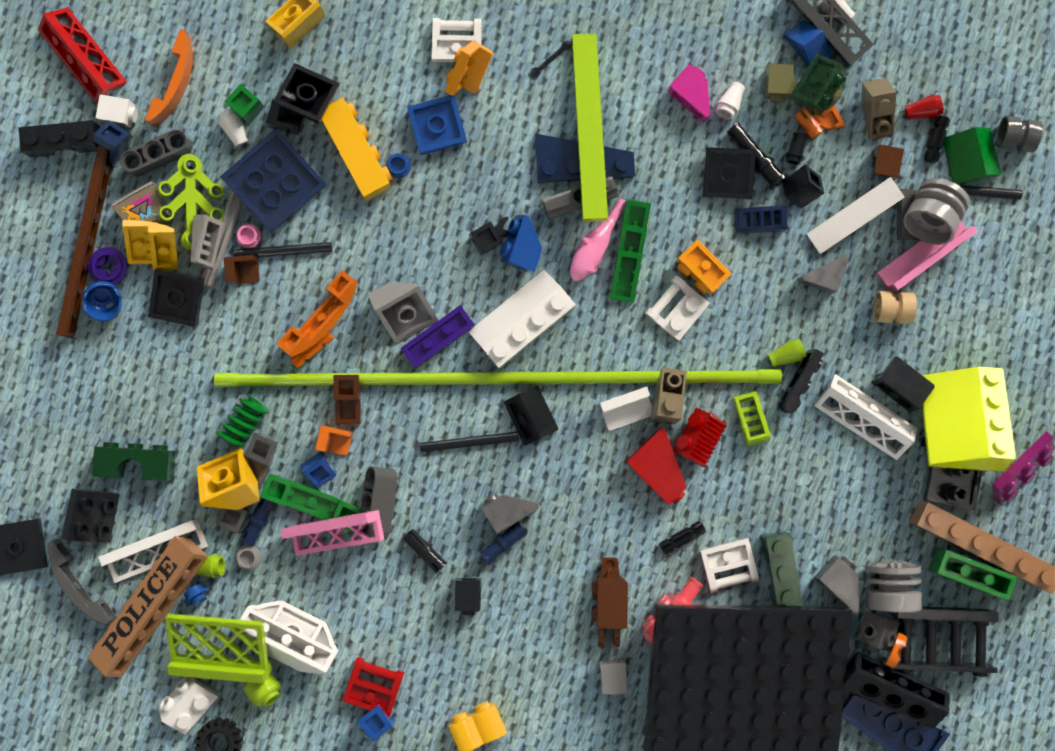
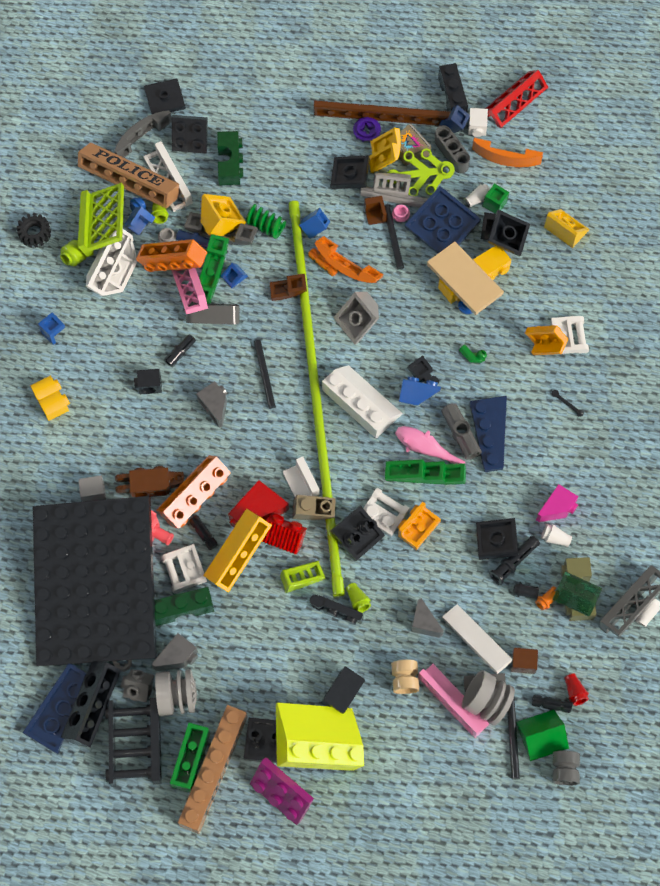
camera: 85 degrees right, 20 degrees down
(97, 297) = (341, 123): blue hair -> none
(186, 704) = (59, 208): white bracket -> none
(220, 596) = (138, 220): none -> blue panel
(251, 354) = (314, 223): none -> blue panel
(293, 554) = (171, 255): none -> orange brick
(333, 440) = (257, 281): orange panel -> none
(366, 161) = (465, 278): none -> tan tile
(369, 694) = (72, 320): red plate -> none
(437, 124) = (502, 327): blue plate -> none
(437, 336) = (341, 343): dark purple plate -> none
(474, 168) = (473, 357): none -> green arm
(503, 543) = (189, 403): dark blue pin -> none
(531, 415) = (289, 414): black panel -> none
(589, 128) = (516, 430): lime tile -> none
(632, 546) = (193, 492): none -> brick
(706, 344) = (357, 533): none -> black plate
(721, 496) = (237, 550): none -> yellow brick
(782, 219) = (465, 583): dark blue slope -> none
(803, 186) = (495, 597): black panel -> none
(808, 41) = (611, 593): blue slope -> none
(830, 119) = (555, 615): orange tile -> none
(870, 414) = (316, 665): white fence -> none
(878, 105) = (569, 650): dark tan slope -> none
(892, 655) = (123, 700): orange tile -> none

